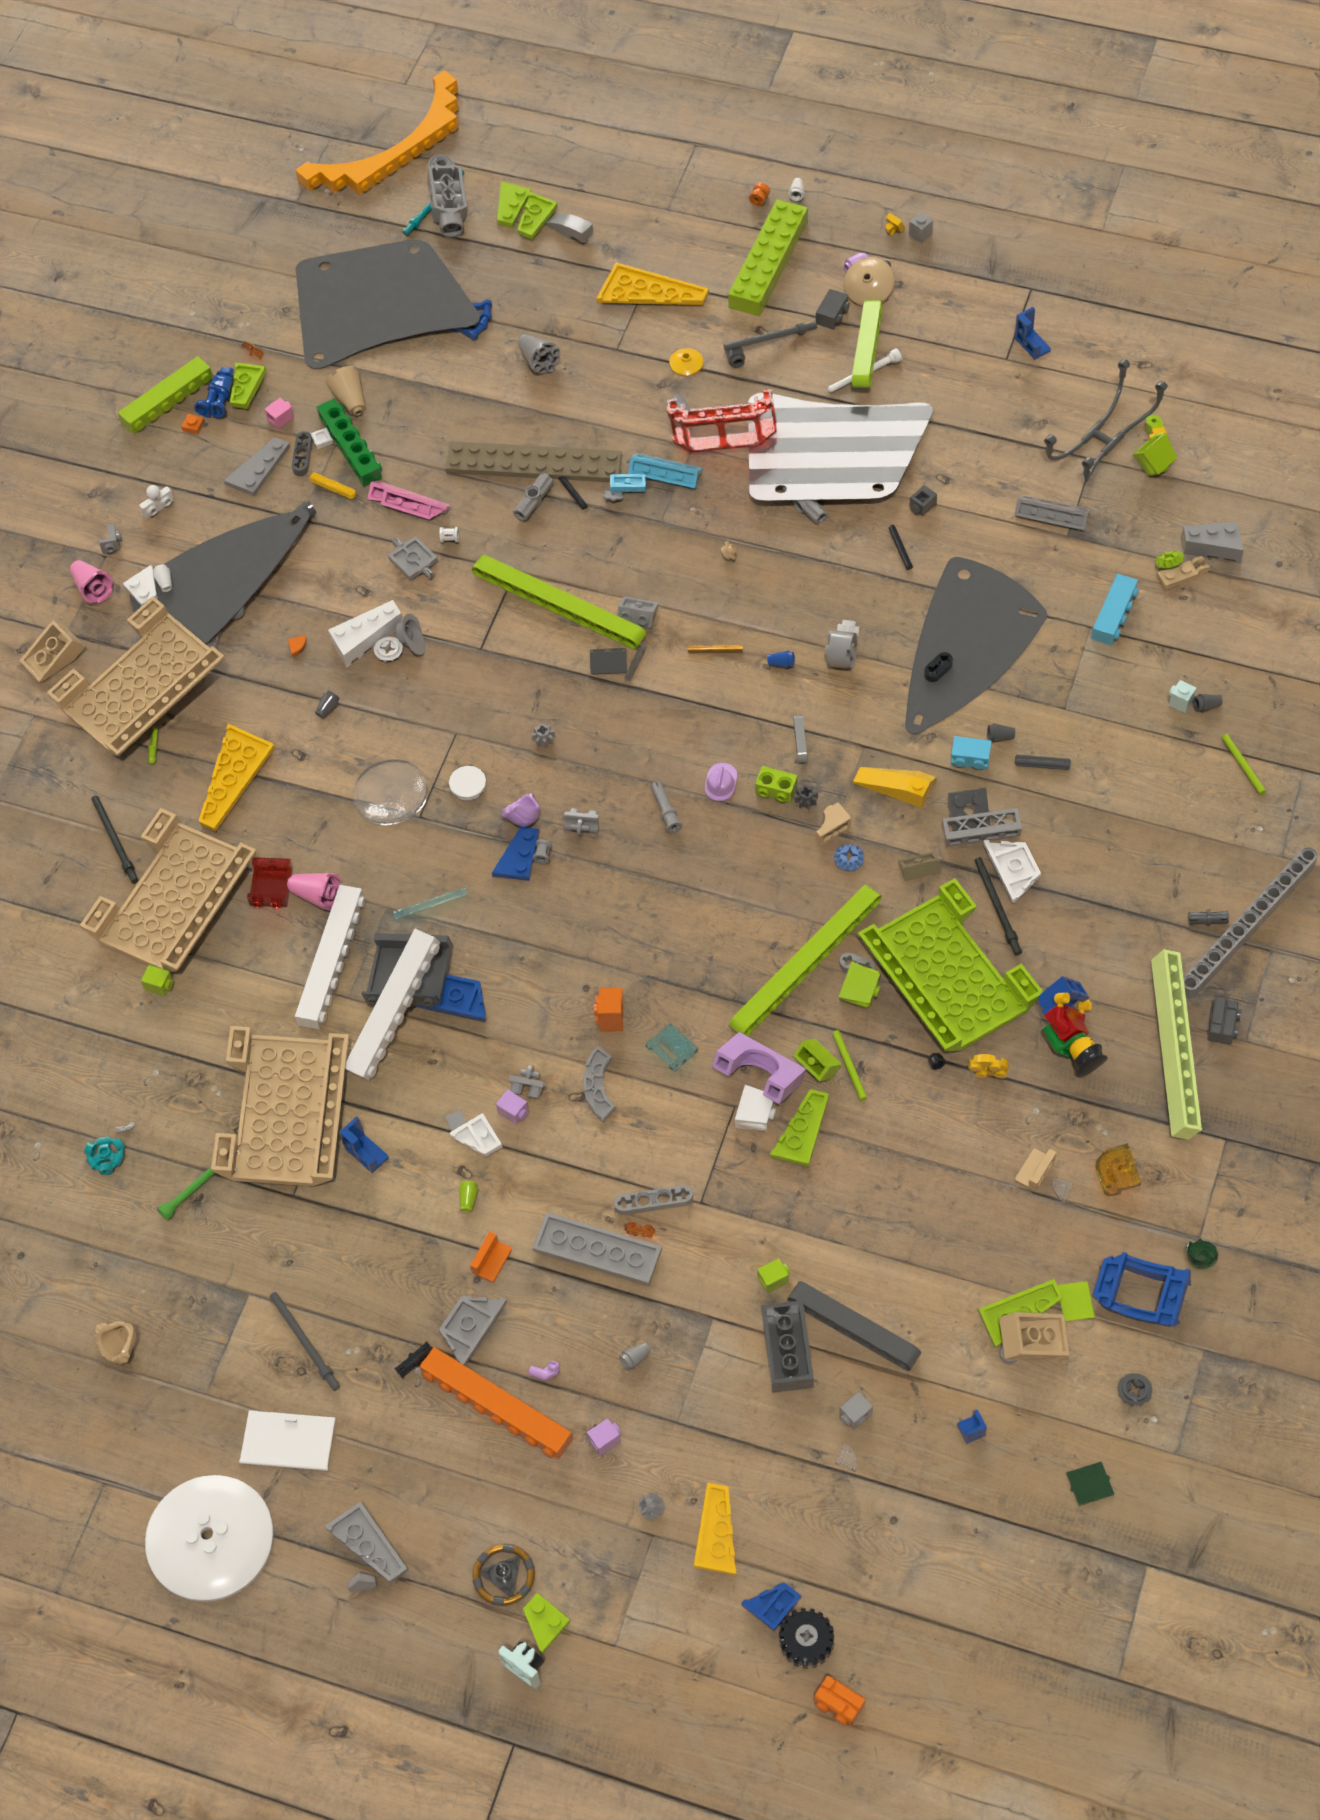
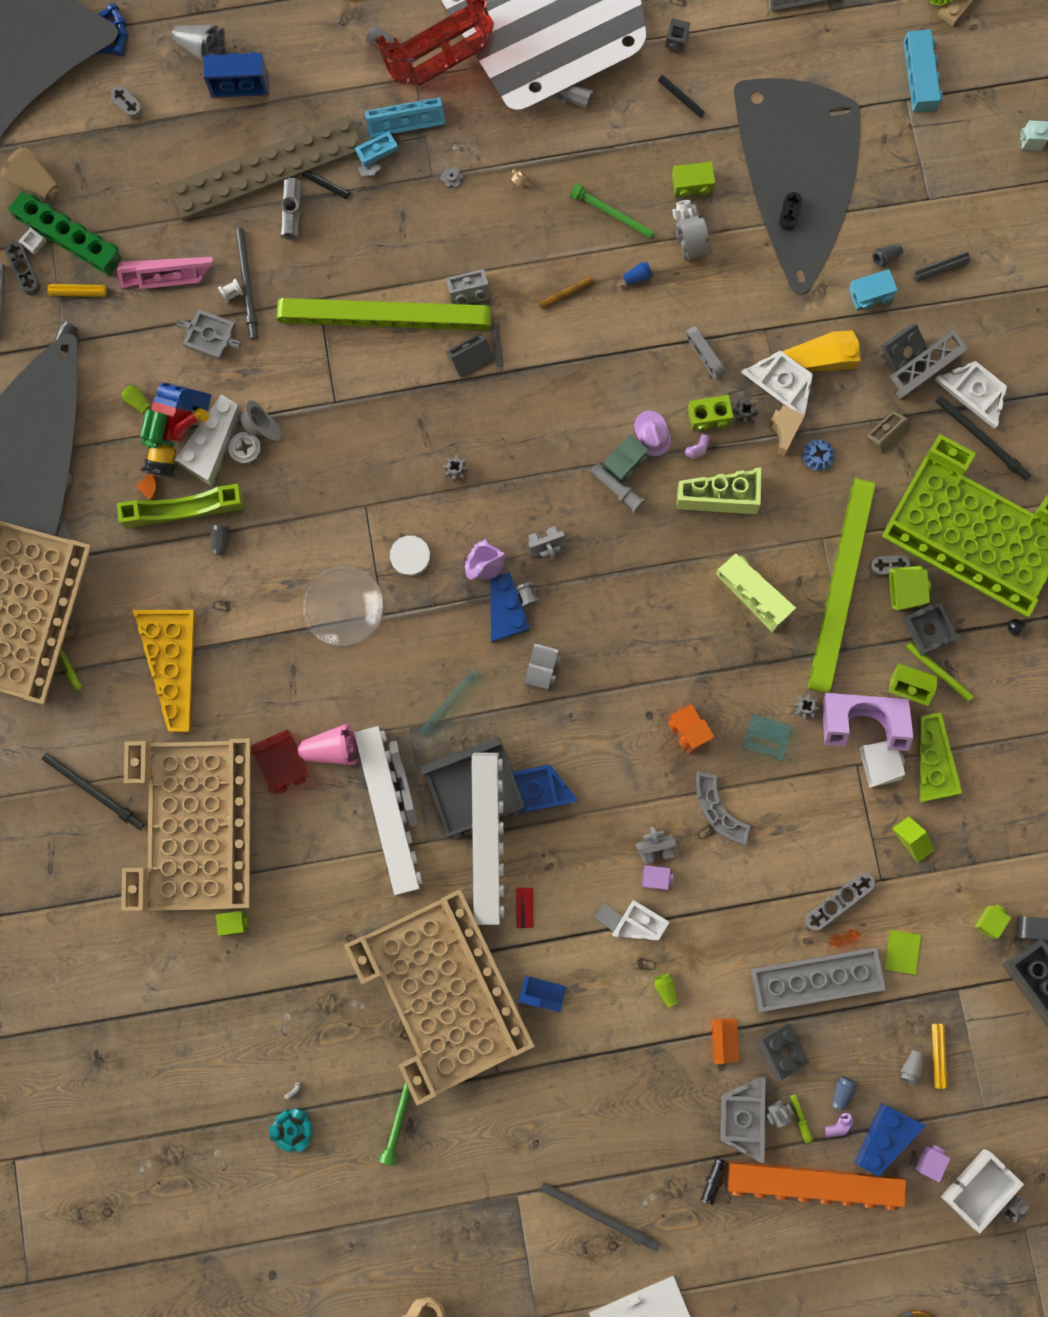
camera: 30 degrees left, 20 degrees up
(327, 578) = (135, 398): none -> lime cone
(337, 601) = (169, 421): none -> piece
(344, 675) = (149, 512): none -> lime arch
(351, 953) = (404, 784): none -> light grey tile
(393, 1082) = (524, 907): none -> red sticker
(453, 560) = (251, 317): none -> dark grey bar
(457, 372) = (129, 100): none -> light grey beam
(500, 1333) = (779, 1114): none -> light grey gear
(515, 1353) = (807, 1137): none -> lime piece
(519, 909) = (541, 667): none -> light grey brick
(522, 1291) = (771, 1048): none -> dark grey piece
(549, 385) = (236, 75): none -> blue brick
(564, 1345) = (843, 1093): none -> sand blue cone
(576, 1396) = (886, 1139): none -> blue wedge
(632, 1477) = (982, 1190): none -> white piece
(663, 1359) = (939, 1056): none -> yellow axle
(676, 529) = (451, 181): none -> light grey plant
(684, 1266) = (902, 952): none -> lime sticker
(685, 787) = (626, 458): none -> sand green brick
(717, 1032) = (807, 700): none -> light grey gear
(729, 933) = (755, 592): none -> yellowish green wedge
(747, 846) = (722, 493): none -> yellowish green wedge
(747, 1183) = (914, 838): none -> lime slope
(751, 809) = (698, 450): none -> lavender arm
(770, 581) = (580, 193): none -> bright green piece
(852, 787) = (783, 380): none -> white wing
(860, 1015) = (935, 616): none -> dark grey piece
(870, 609) = (693, 179): none -> lime brick

